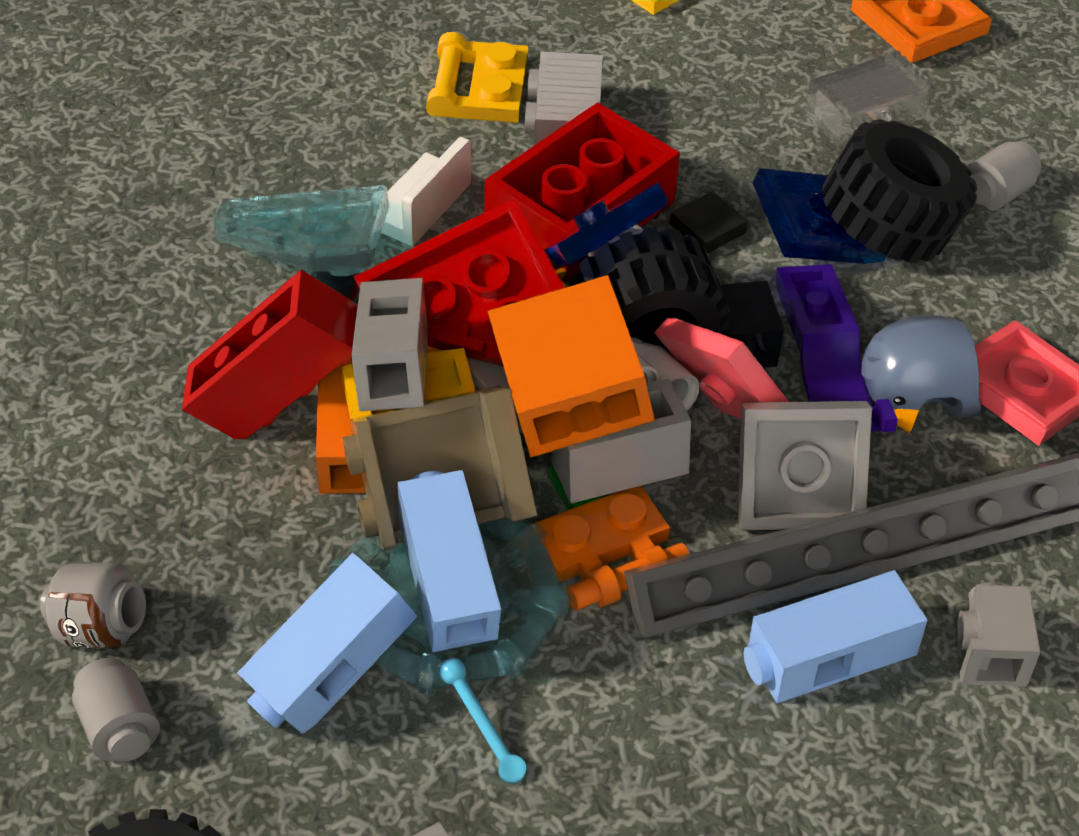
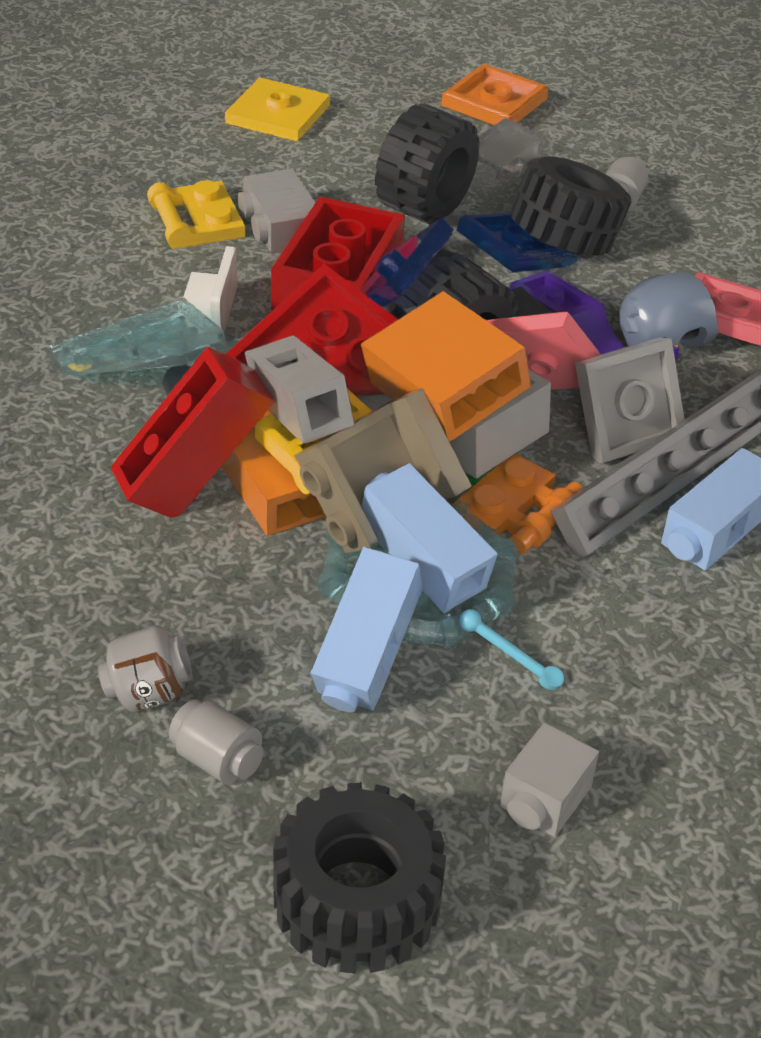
camera: 25 degrees left, 5 degrees down
(754, 90) = (427, 163): none -> black tyre

